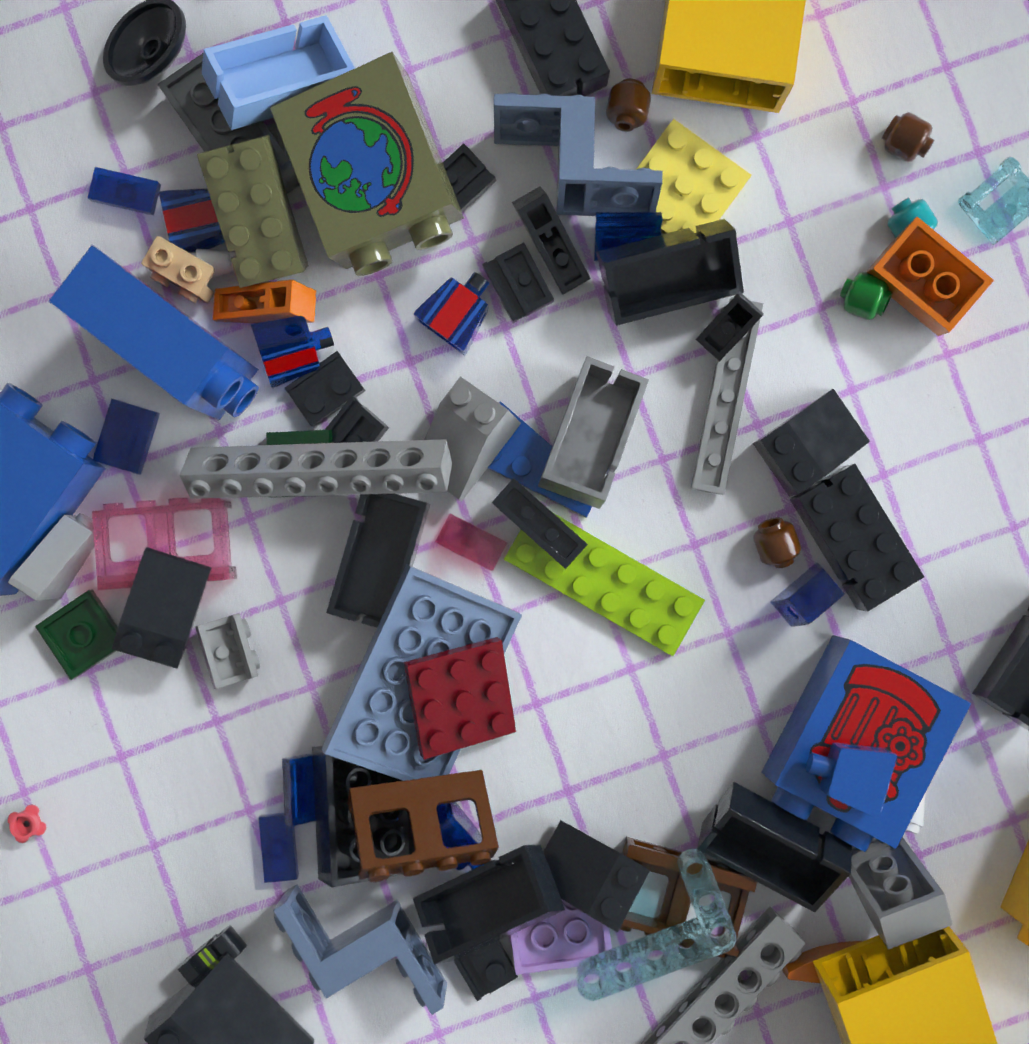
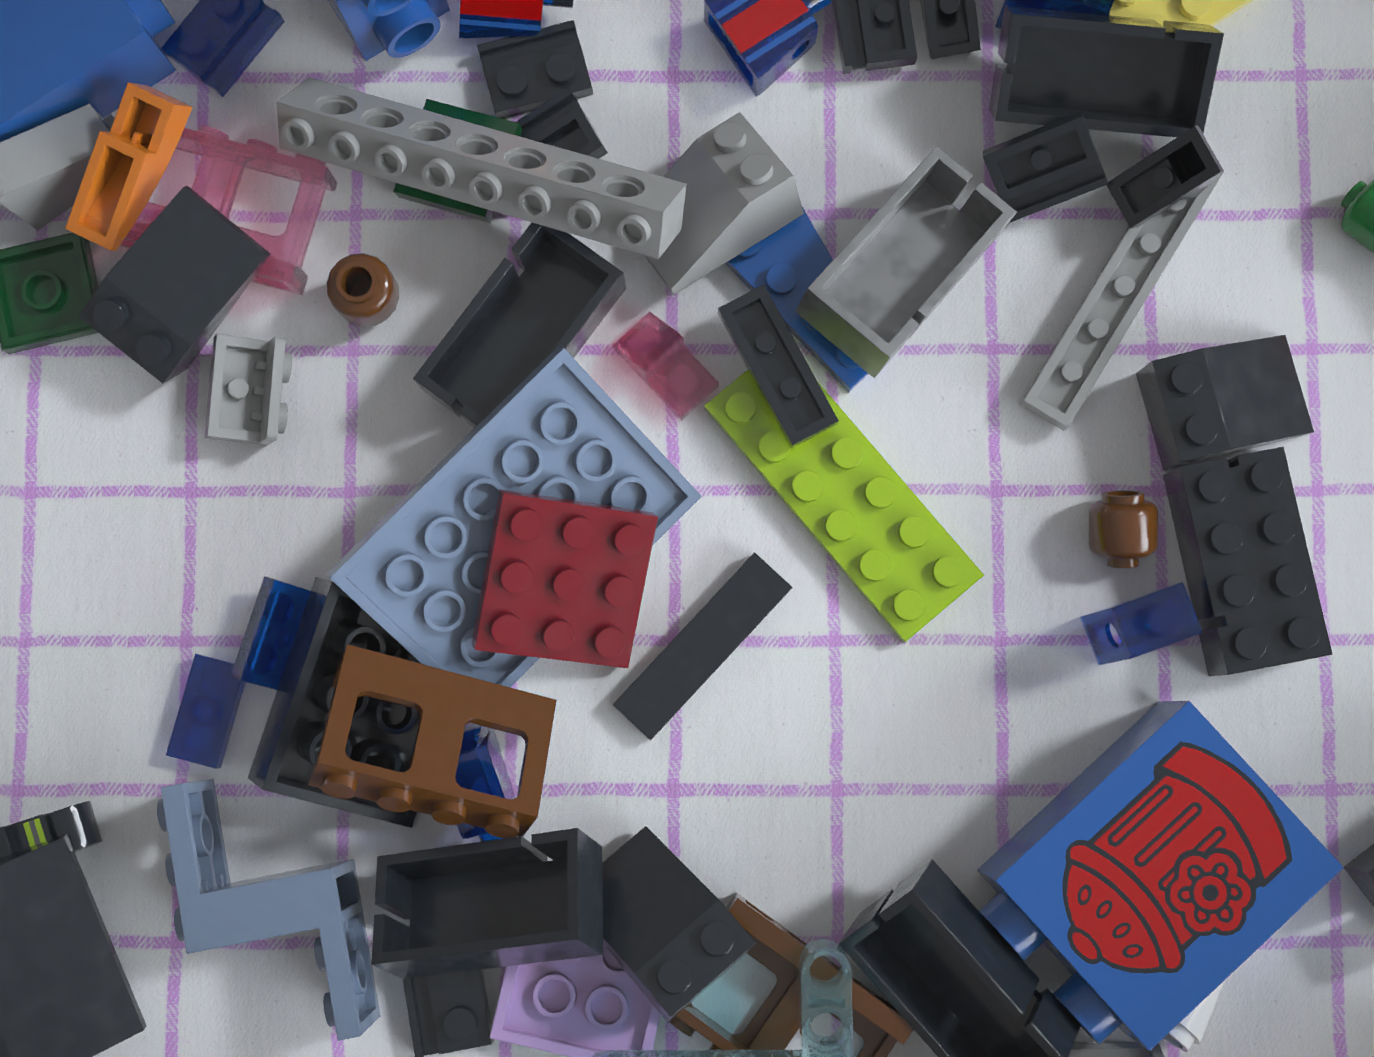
camera: 20 degrees right, 5 degrees down
(104, 546) = (127, 165): none -> orange slope
(274, 566) = (362, 289): none -> reddish brown head
(555, 702) = (702, 646): none -> black tile
(655, 341) = (1046, 166): none -> black plate
(855, 775) = (1125, 908): blue torso -> none

